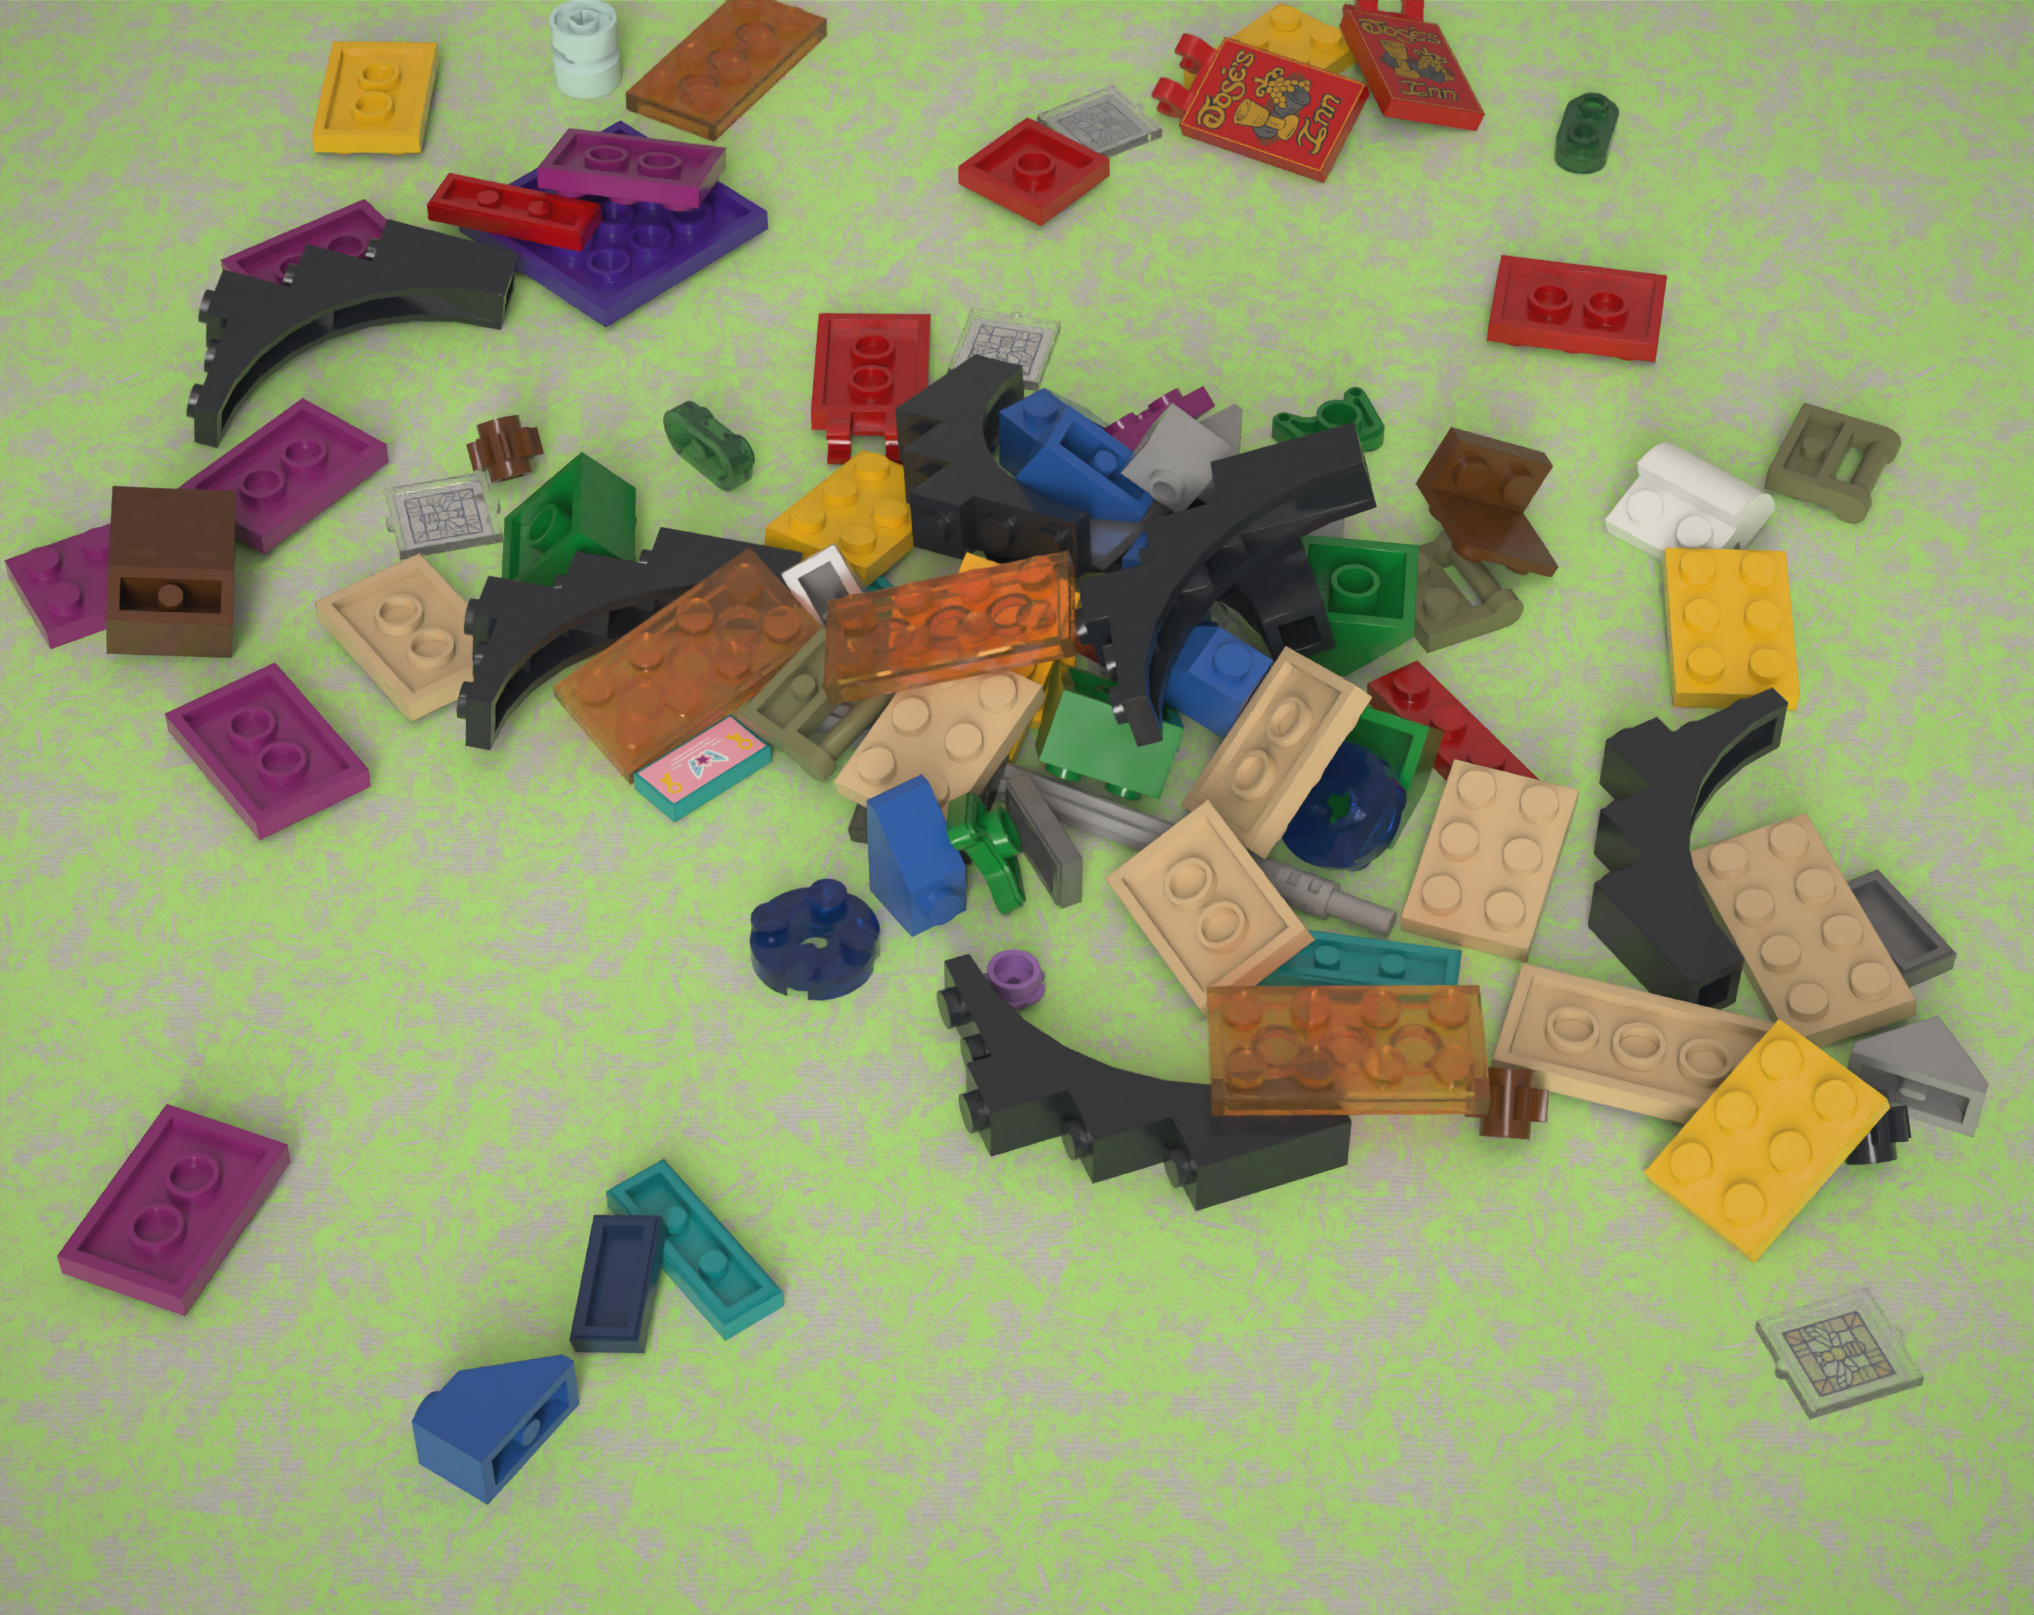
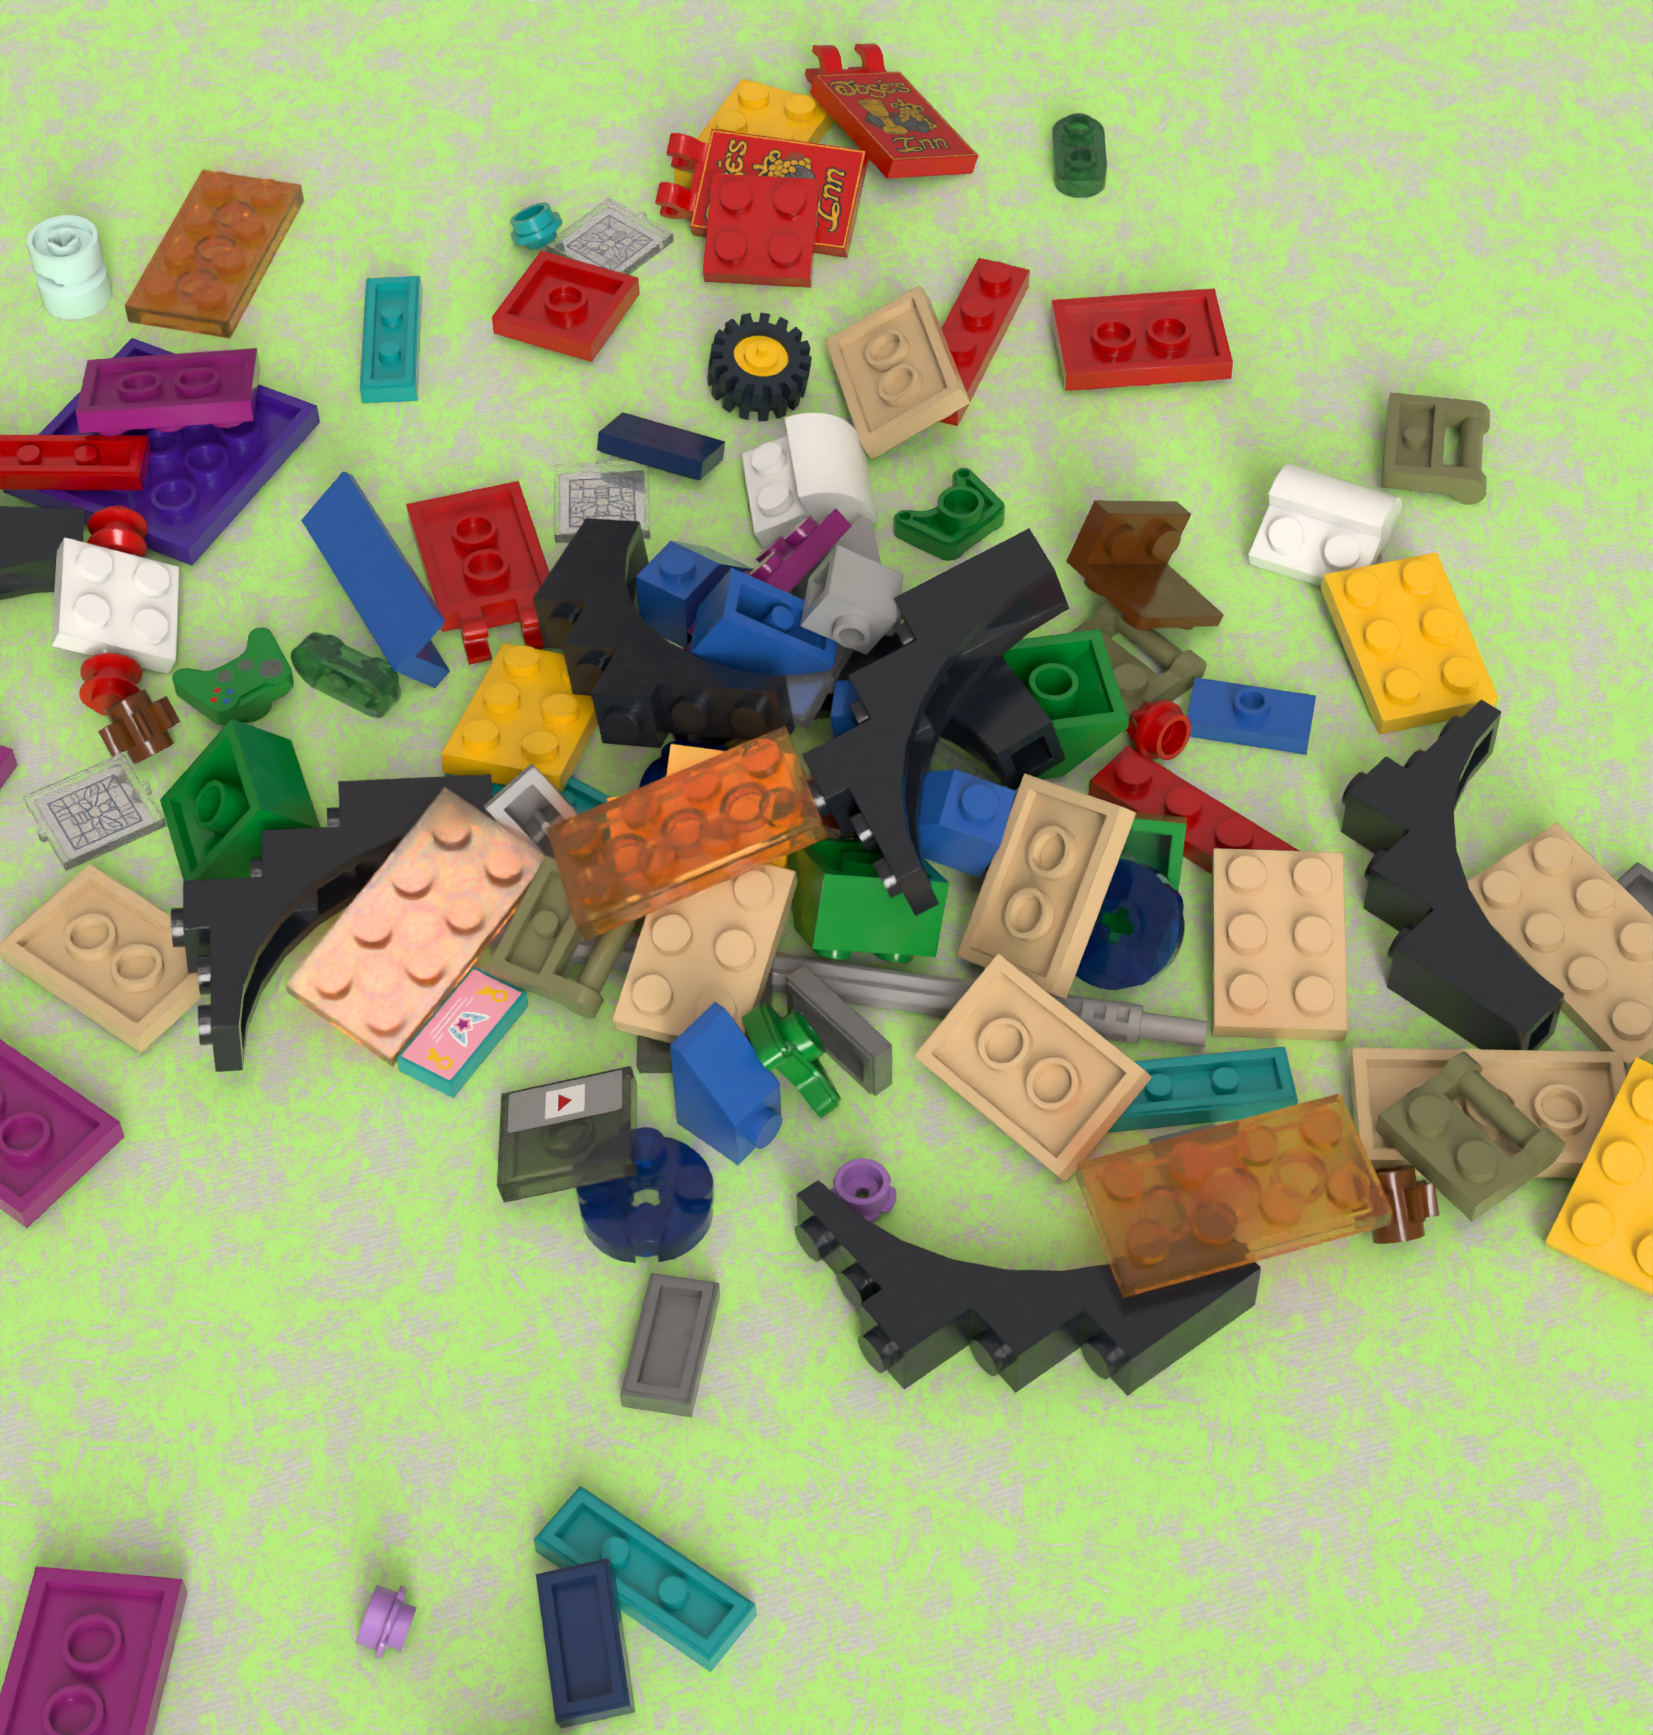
camera: 15 degrees left, 5 degrees up
(451, 1223) = (386, 1621): none -> medium lavender plate
(520, 342) = (114, 607): none -> white plate
(611, 436) = (241, 687): none -> green piece
(760, 869) = (567, 1134): none -> clear smoke tile
(763, 371) = (378, 580): none -> blue panel
(790, 1067) = (670, 1345): none -> flat silver tile
(861, 170) = (391, 339): none -> teal tile
(1031, 96) = (535, 226): none -> teal plate
(1076, 311) = (660, 446): none -> dark blue tile
(1194, 258) = (759, 366): none -> black wheel
(1217, 351) = (807, 474): none -> white brick
(1244, 139) = (761, 230): none -> red plate
(1322, 288) = (896, 372): none -> tan plate
(1408, 278) = (981, 321): none -> red plate
(1452, 653) = (1159, 729): none -> red plate
(1549, 661) = (1251, 715): none -> blue plate
(1582, 1069) = (1457, 1152): none -> olive plate

